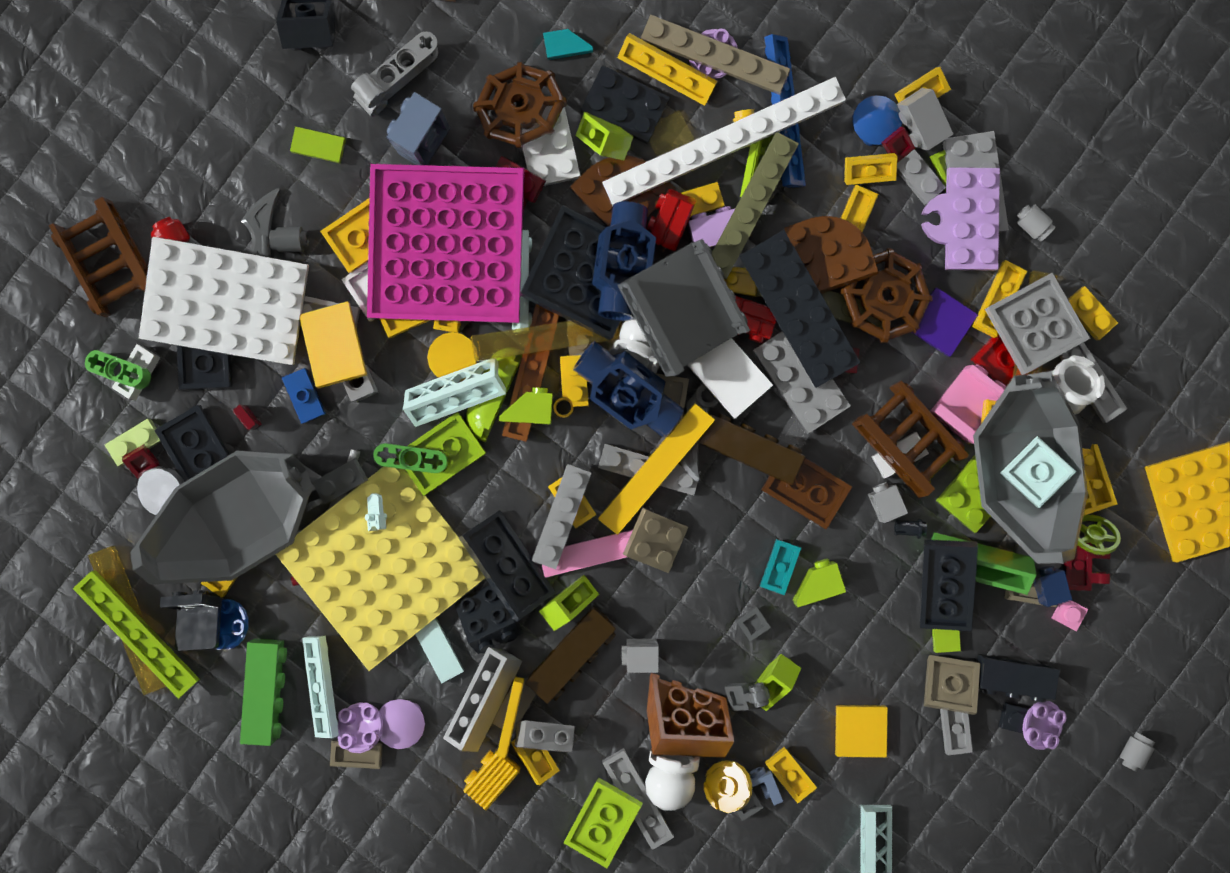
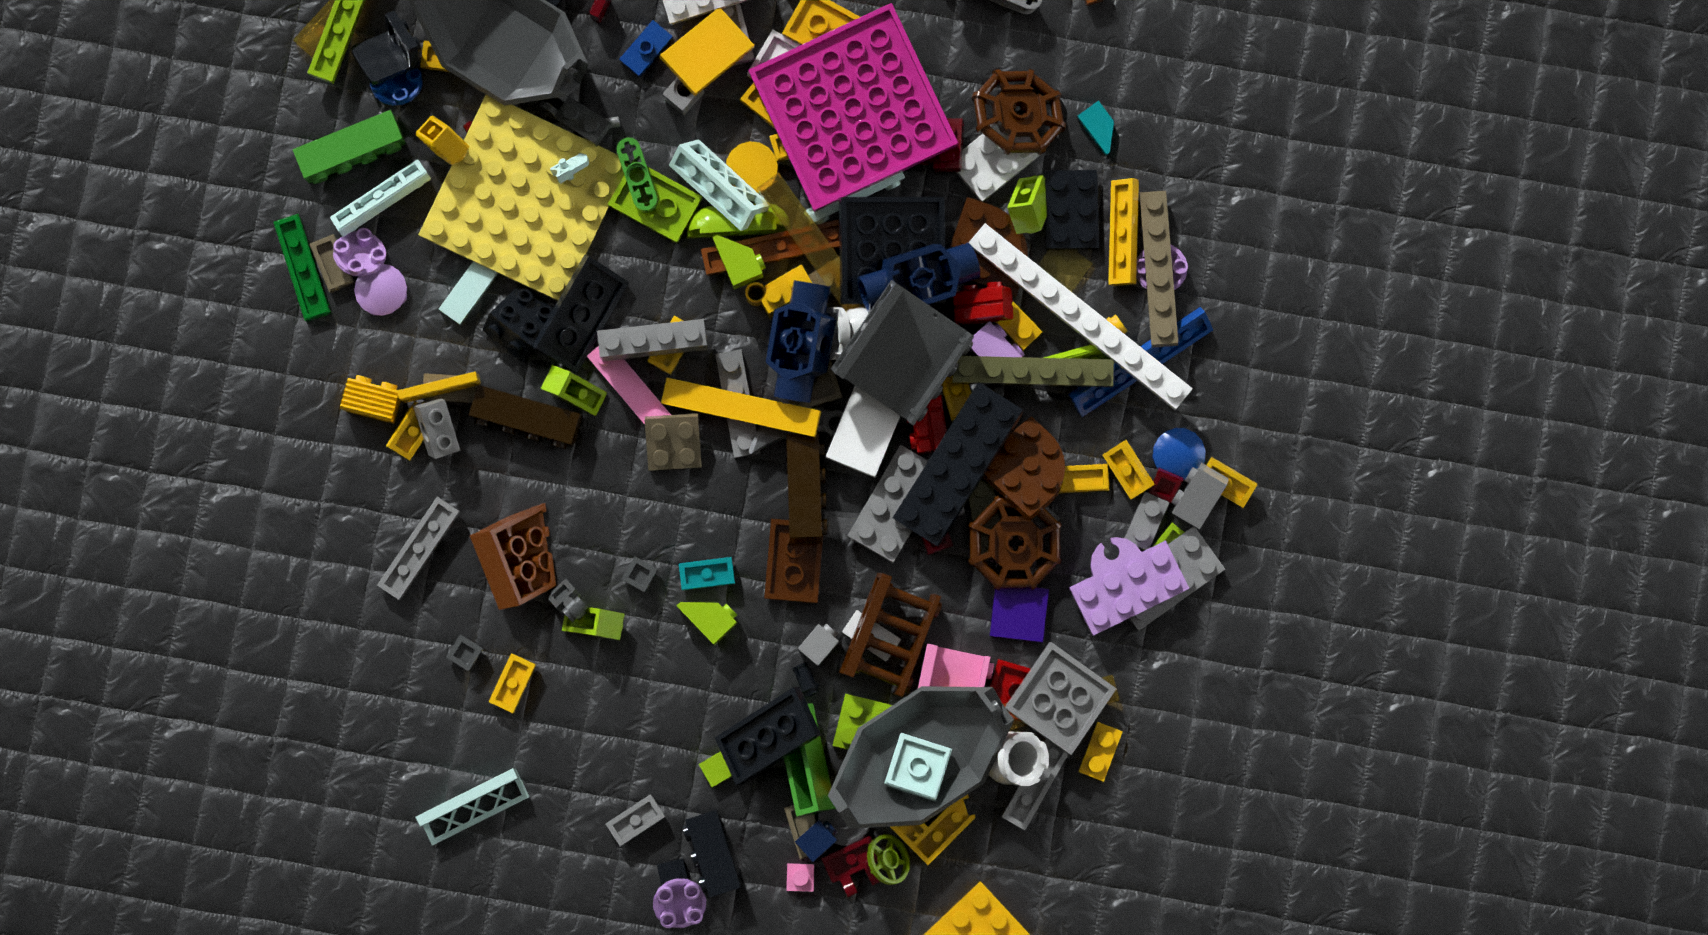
camera: 65 degrees right, 5 degrees down
(297, 611) = (442, 140): none -> yellow brick
(347, 781) = (302, 267): none -> green tile
(418, 130) = (943, 31): sand blue brick -> none
(482, 700) = (442, 353): light grey brick -> none
(603, 822) = (380, 524): lime plate -> none
(640, 655) = (557, 479): light grey brick -> none
(671, 780) = (452, 567): white tile -> none
(728, 786) = (472, 626): yellow tile -> none
(769, 788) = (491, 668): sand blue bracket -> none
(861, 731) = (587, 731): yellow tile -> none
(952, 684) = (675, 792): dark tan plate -> none
(1005, 284) = (1090, 654): yellow tile -> none
(1035, 222) = (1158, 652): light grey brick -> none

